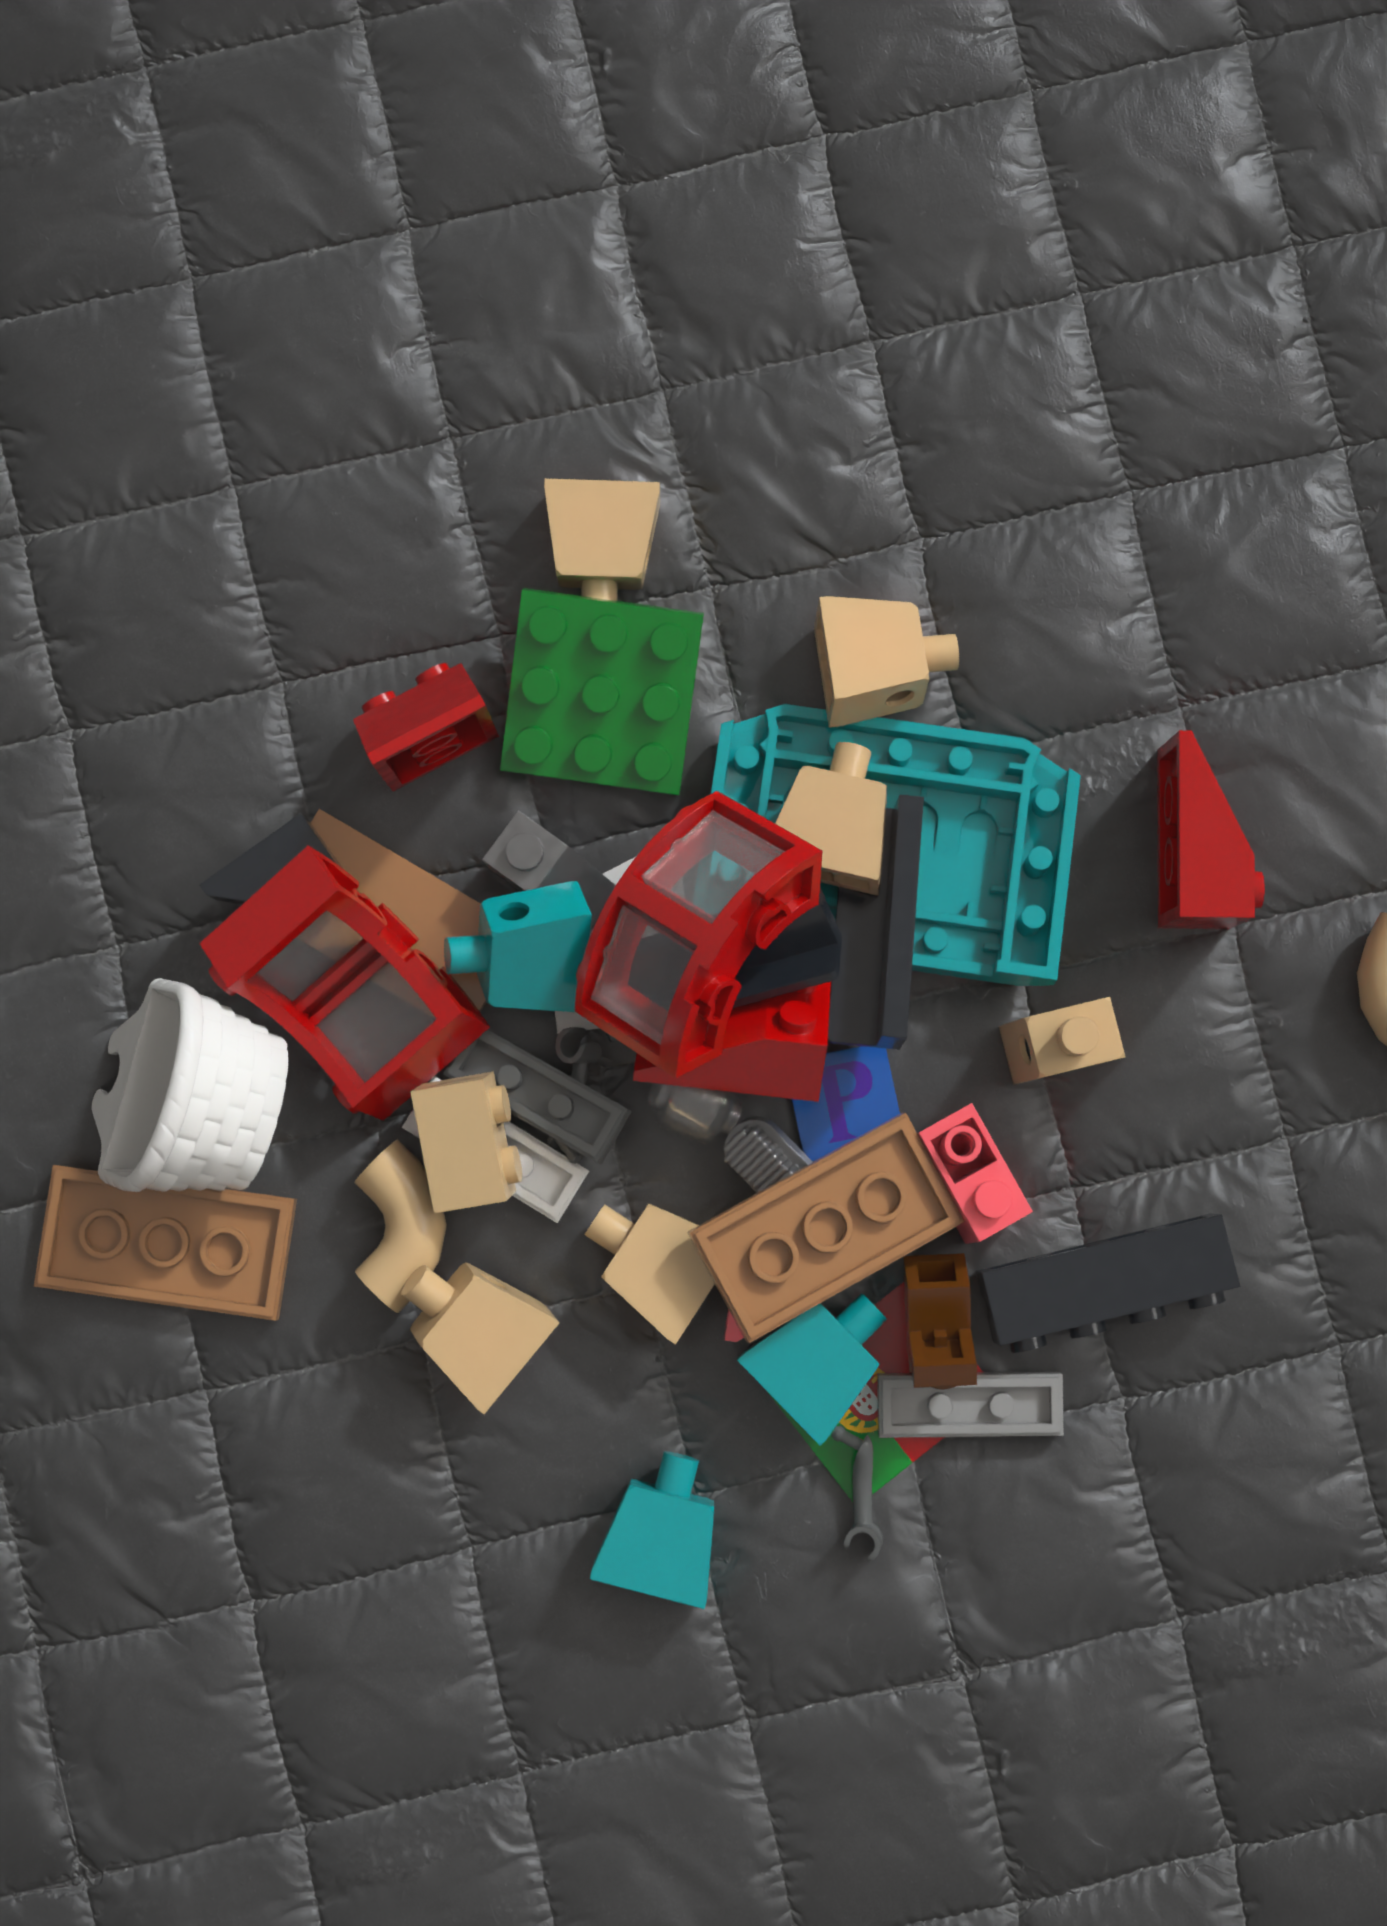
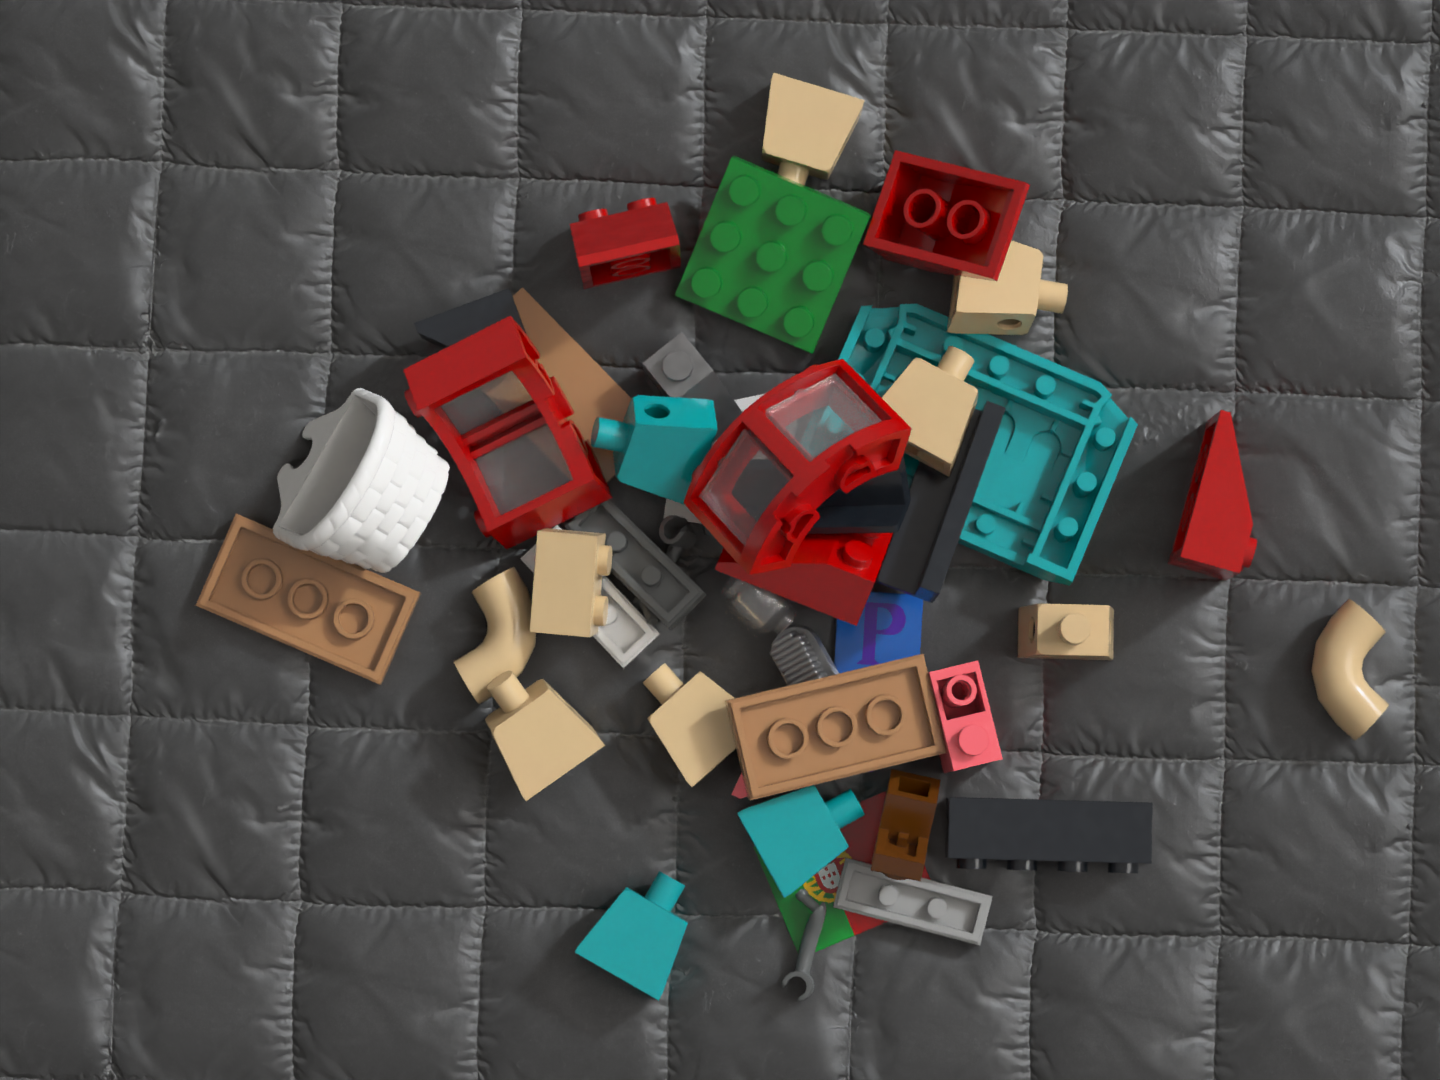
camera: 15 degrees right, 0 degrees up
(793, 592) = (945, 217): none -> red slope

